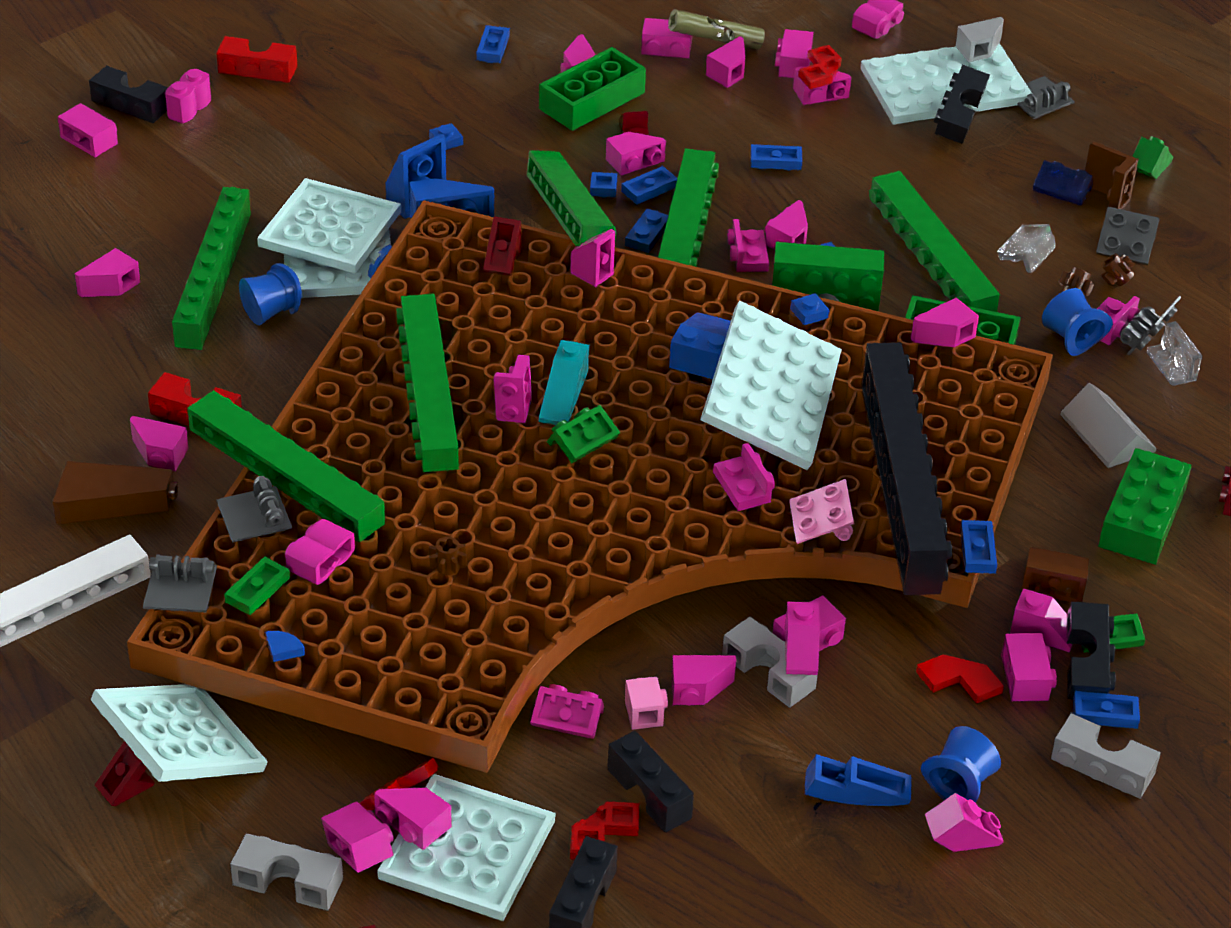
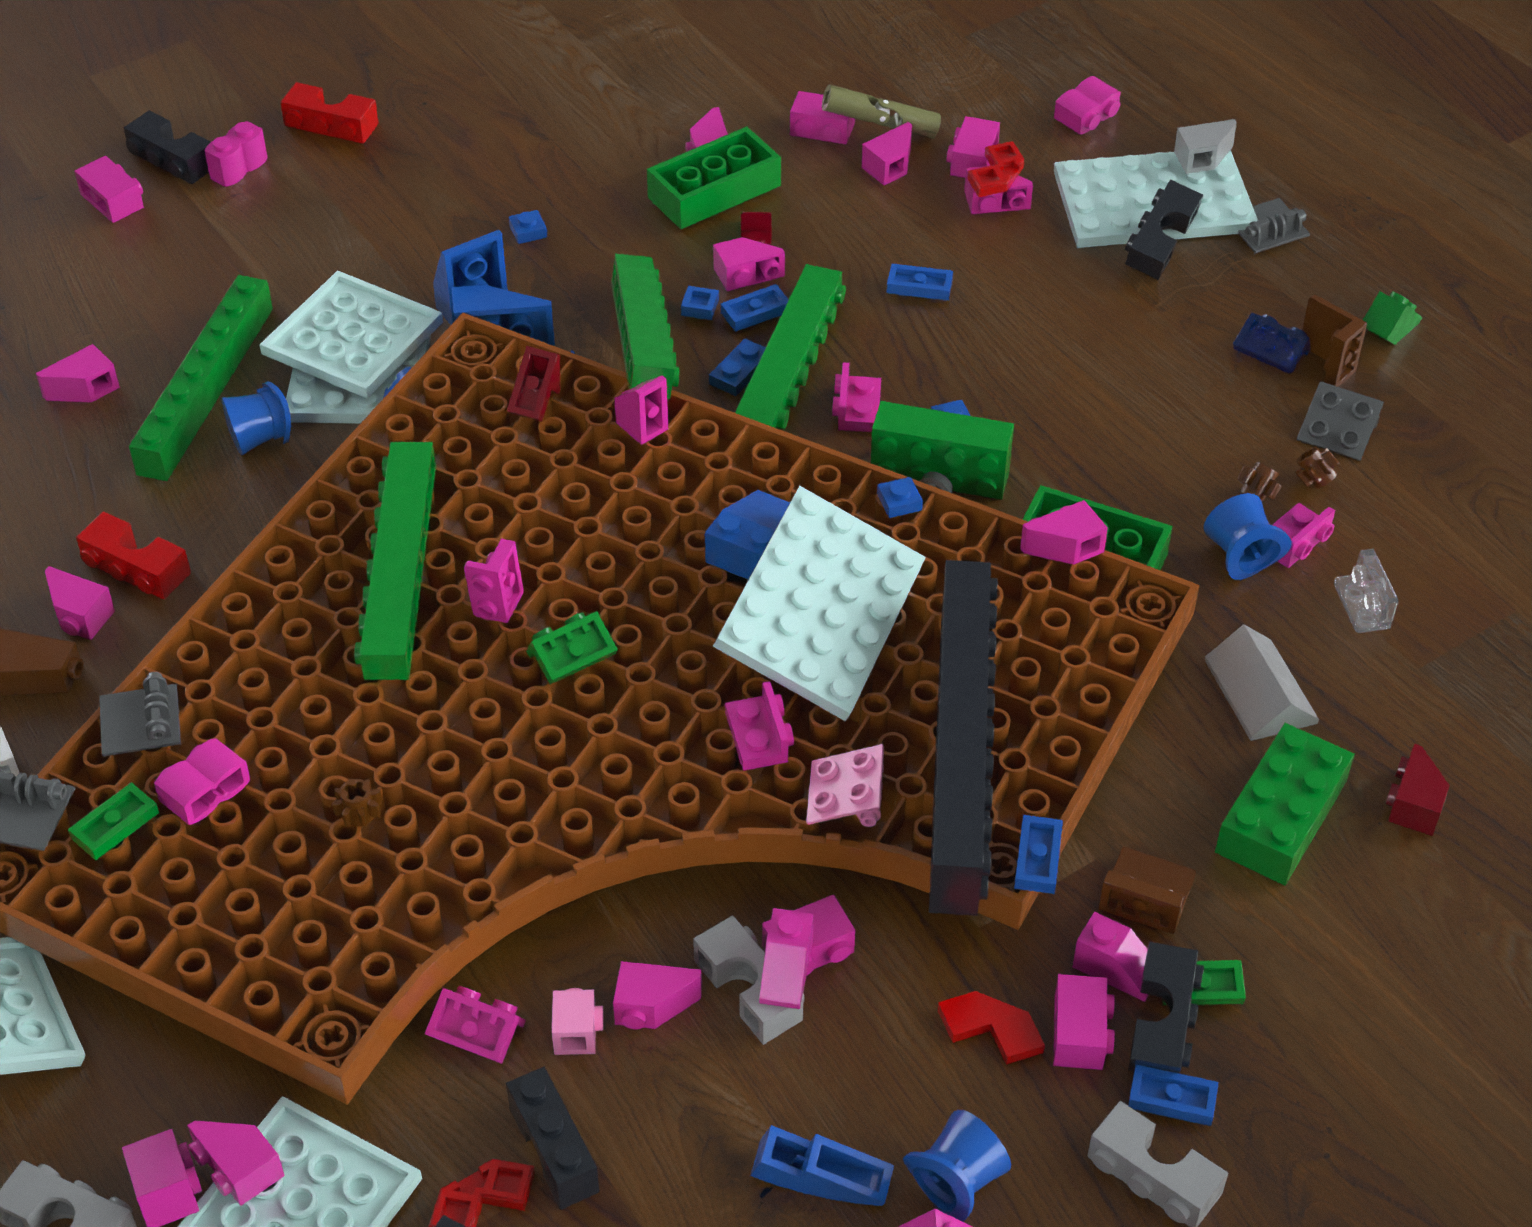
camera: 10 degrees right, 5 degrees up
(284, 645) = (123, 907): blue tile -> none
(286, 465) = (196, 659): green brick -> none
(405, 780) = (241, 1104): red tile -> none
(492, 44) = (612, 111): blue plate -> none
(564, 382) = (566, 574): teal slope -> none
(788, 226) = (911, 379): dark pink slope -> none
(932, 242) = (1089, 415): green brick -> none
(1029, 243) = (1210, 425): clear bracket -> none
(1143, 324) = (1336, 545): dark grey hinge -> none

